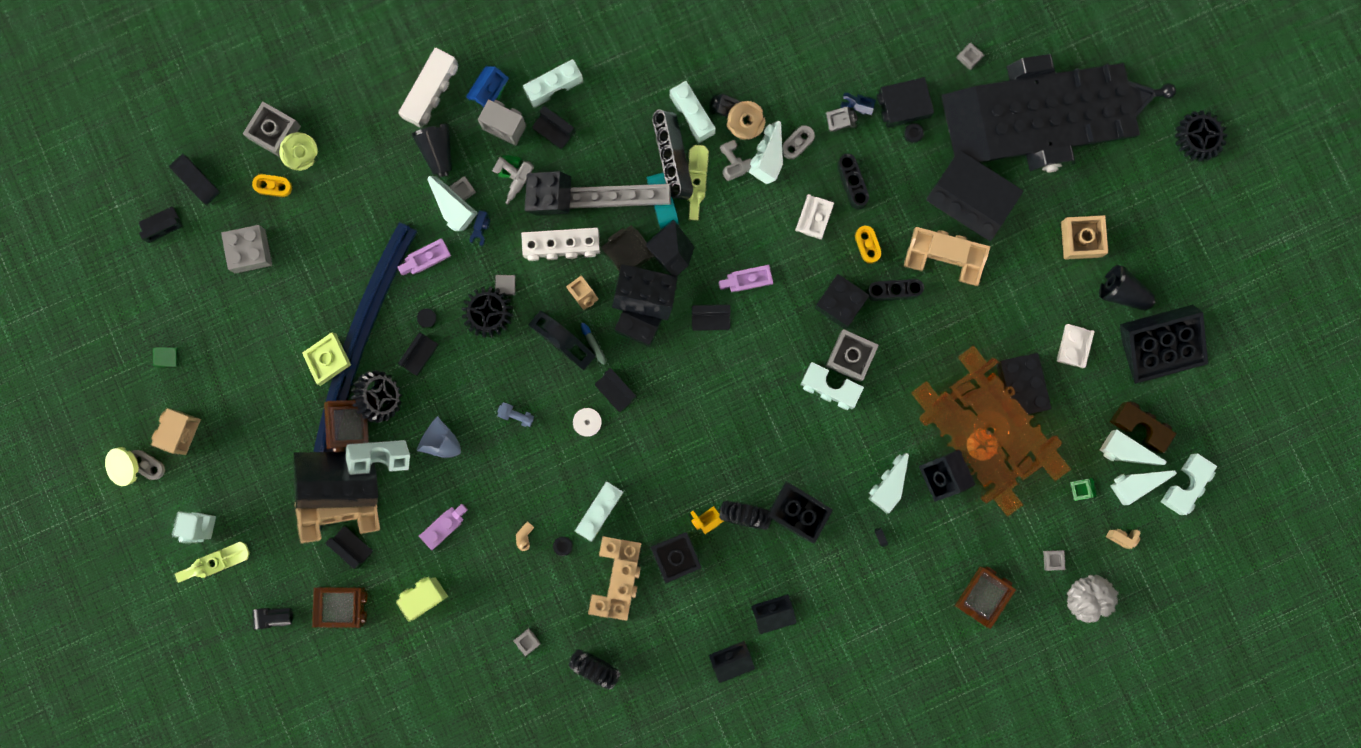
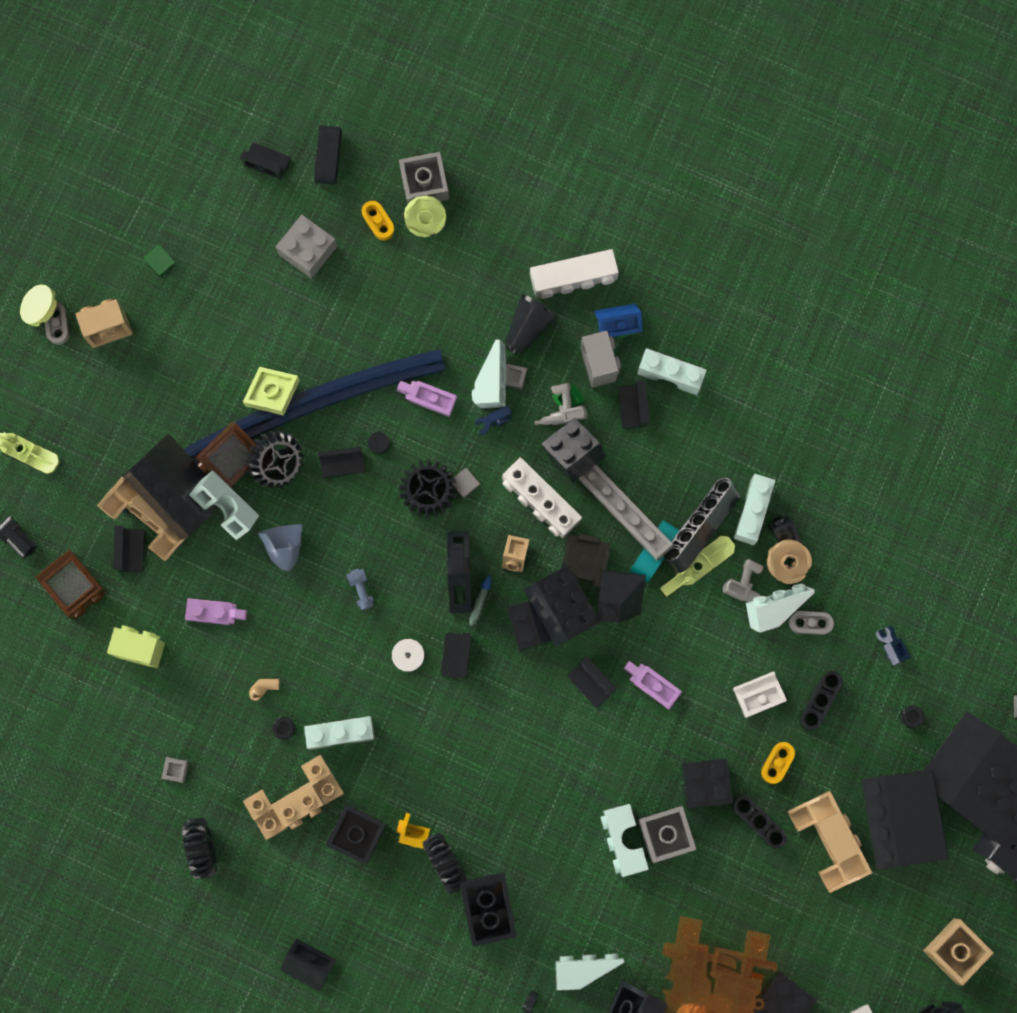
camera: 50 degrees right, 5 degrees down
(194, 526) = (37, 407): light aqua arch -> none
(774, 614) = (381, 965): black panel -> none
(841, 118) = (866, 642): bracket -> none
(905, 102) = (931, 685): black brick -> none

